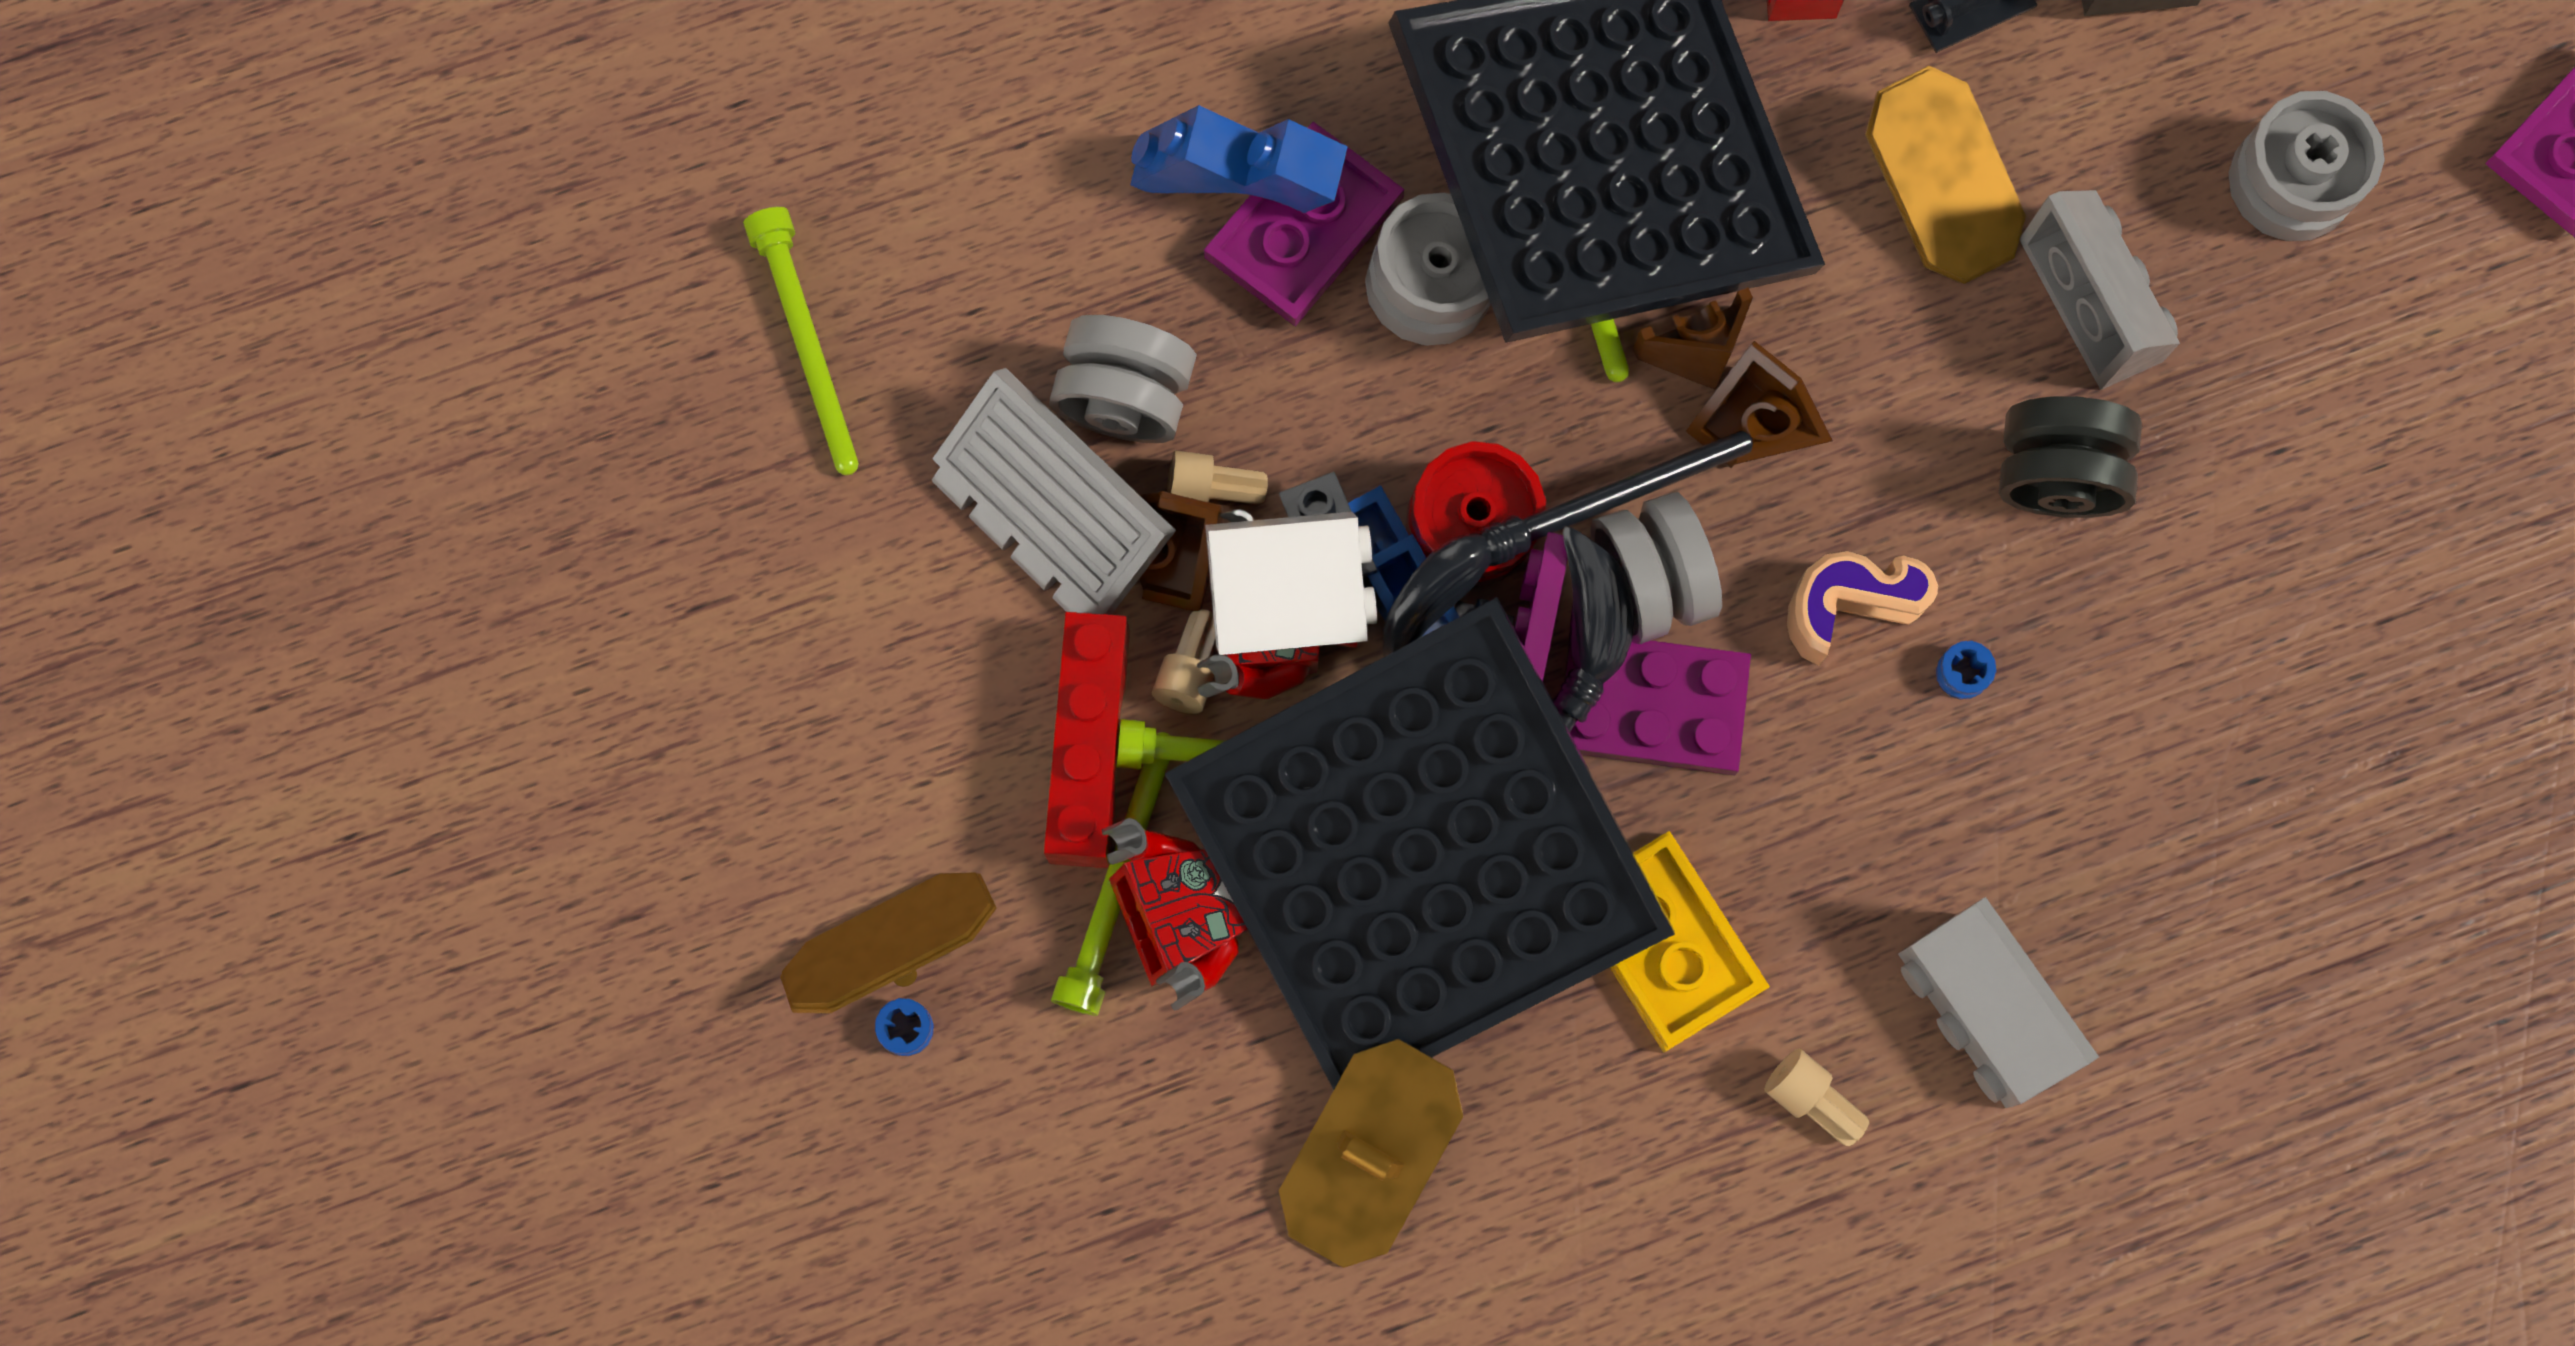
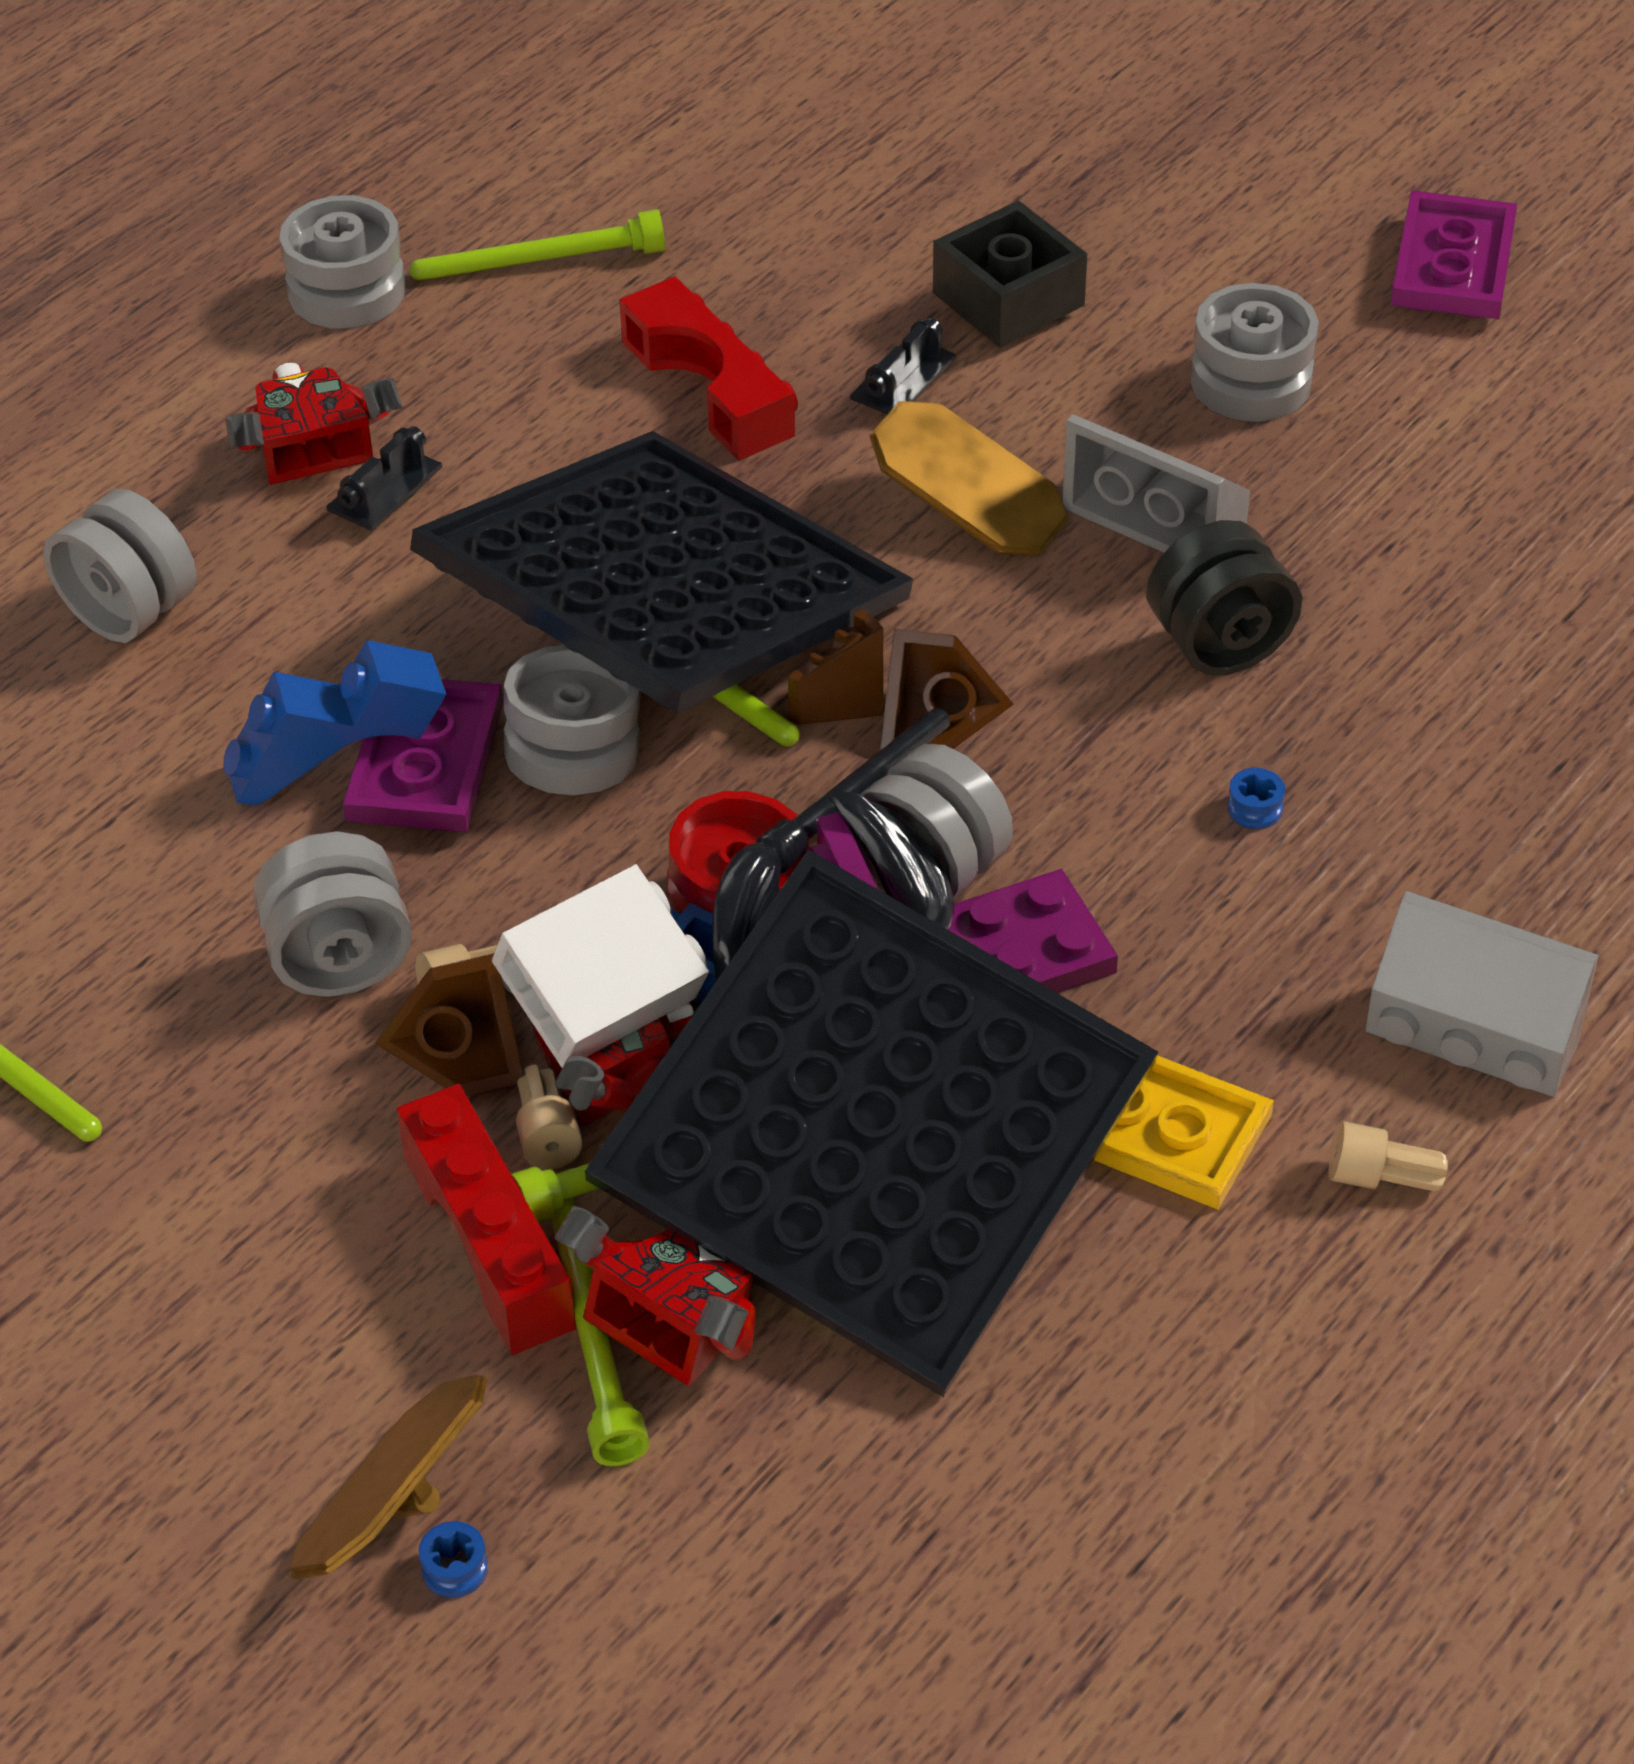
camera: 30 degrees left, 30 degrees down
(1050, 496) = (314, 1037): light grey hinge -> none
(1371, 1153) = (1005, 1414): pearl gold shield -> none
(1856, 587) = (1118, 777): light nougat animal -> none

